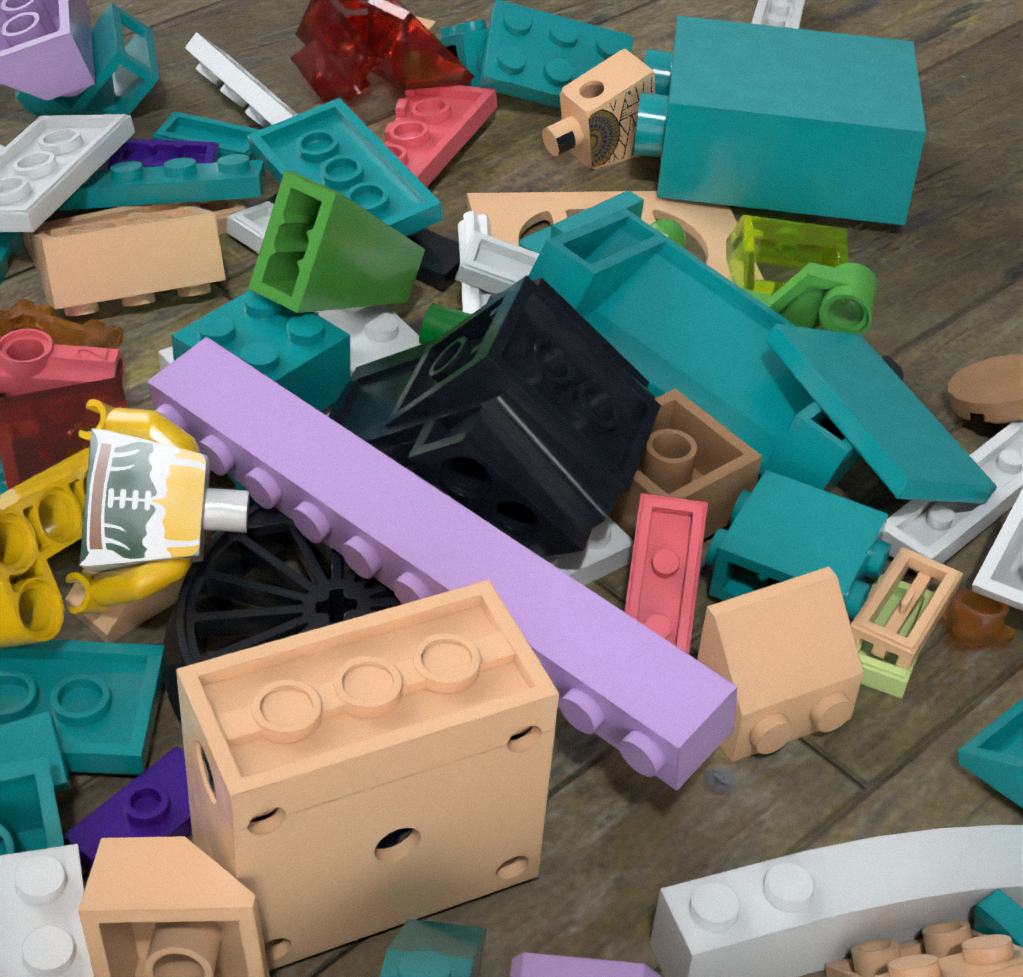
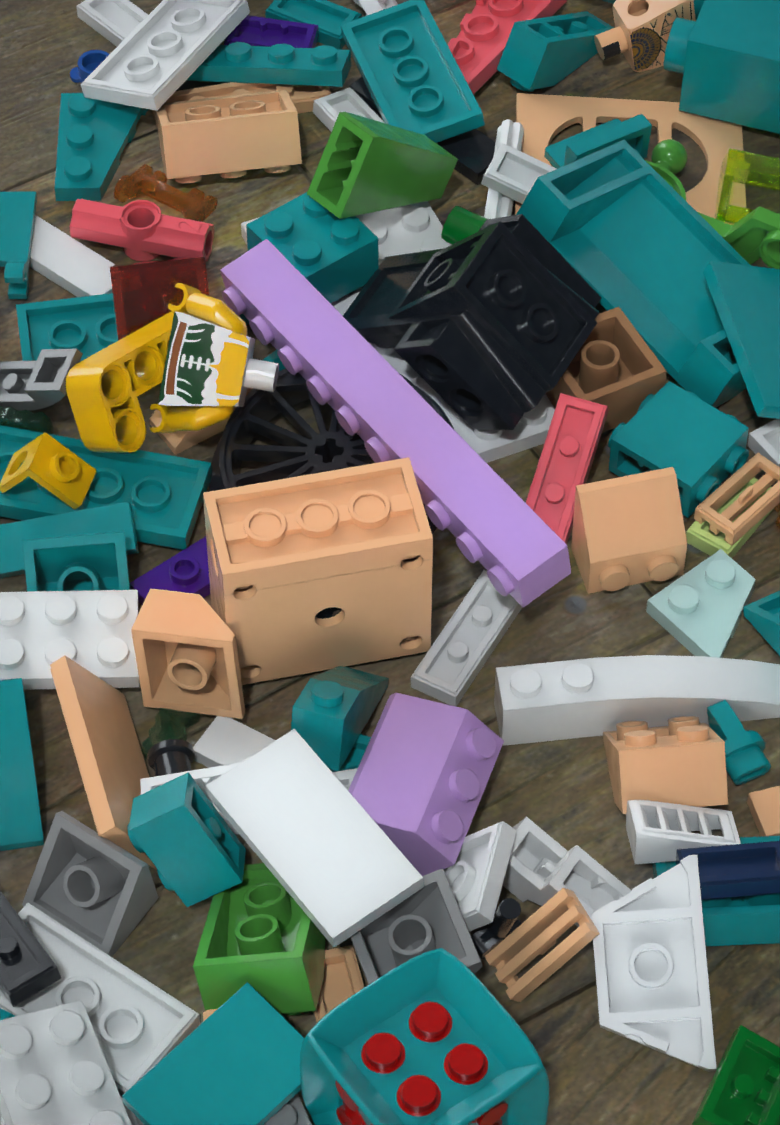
camera: 15 degrees right, 10 degrees up
(491, 149) = (549, 49): none -> teal slope
(586, 855) = (465, 642): none -> white tile
(900, 759) = (704, 604): none -> light aqua wing

